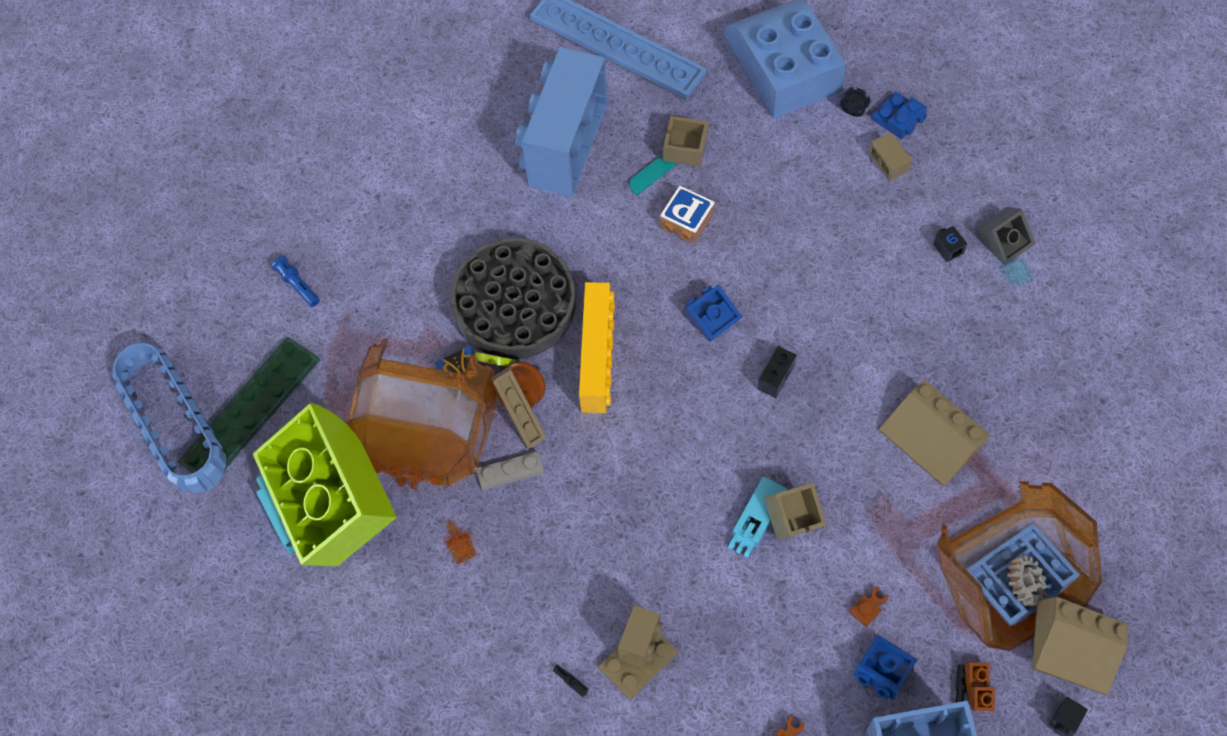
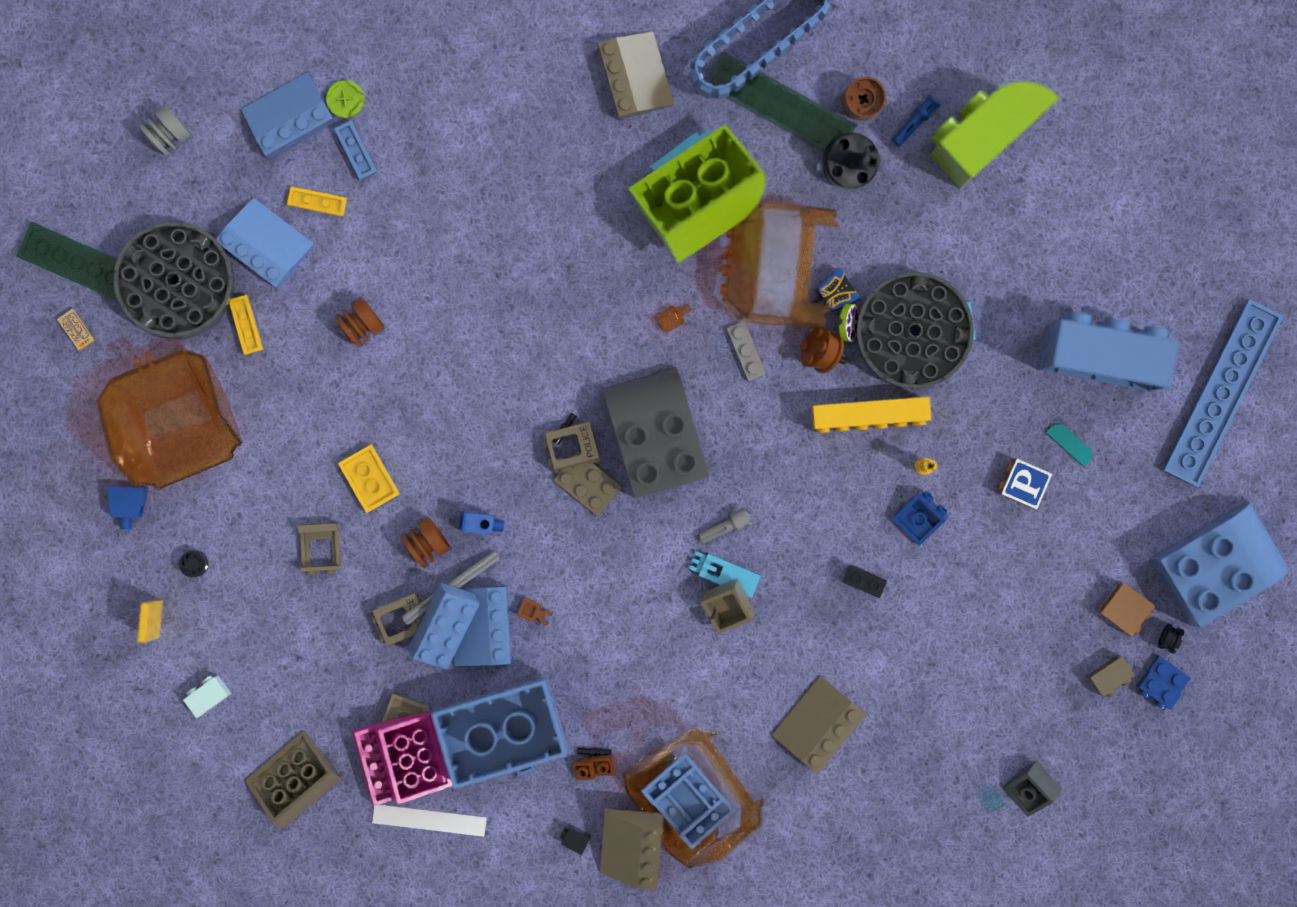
camera: 85 degrees right, 25 degrees up
(178, 558) = (635, 74): none -> dark tan slope
(260, 323) = (874, 96): none -> dark orange wheel
(319, 205) = (988, 128): none -> lime brick
(323, 339) = (851, 160): none -> black piece
(518, 408) = (797, 352): dark tan plate -> none
(588, 570) = (656, 432): none -> dark grey brick
(588, 650) = (587, 444): none -> dark tan window
(639, 637) = (599, 484): dark tan piece -> none
(658, 298) = (925, 466): none -> yellow pin
(685, 141) = (1107, 475): dark tan piece -> none
(699, 495) = (737, 521): none -> light grey piece
(822, 137) = (1126, 609): none -> medium nougat piece
(867, 609) = (651, 672): dark orange plate -> none
(884, 668) = (600, 689): blue plate -> none
(950, 243) = (1017, 735): black brick -> none
(1027, 580) = (680, 805): light grey gear -> none

